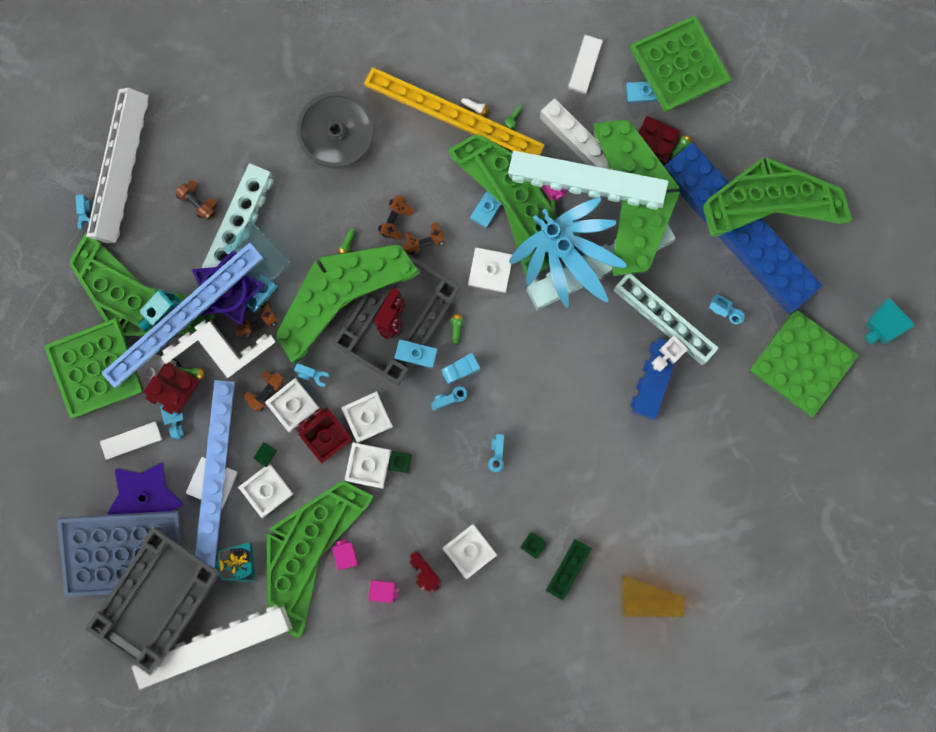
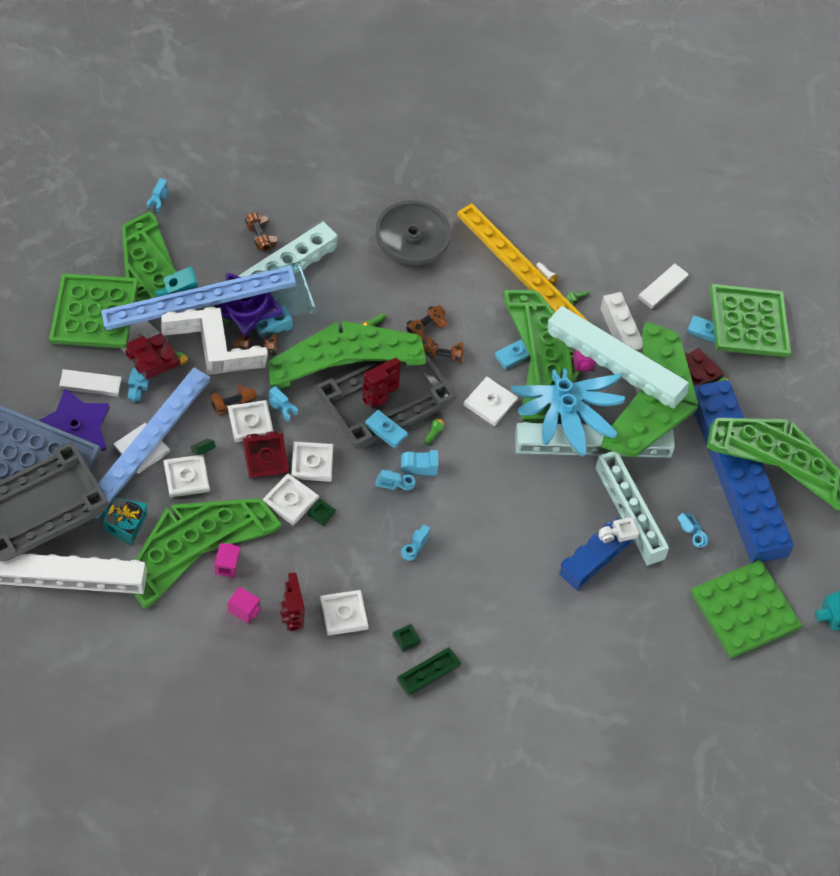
camera: 20 degrees right, 25 degrees down
(117, 166) = (208, 175): white brick -> none
(648, 601) = (492, 732): clear yellow wedge -> none

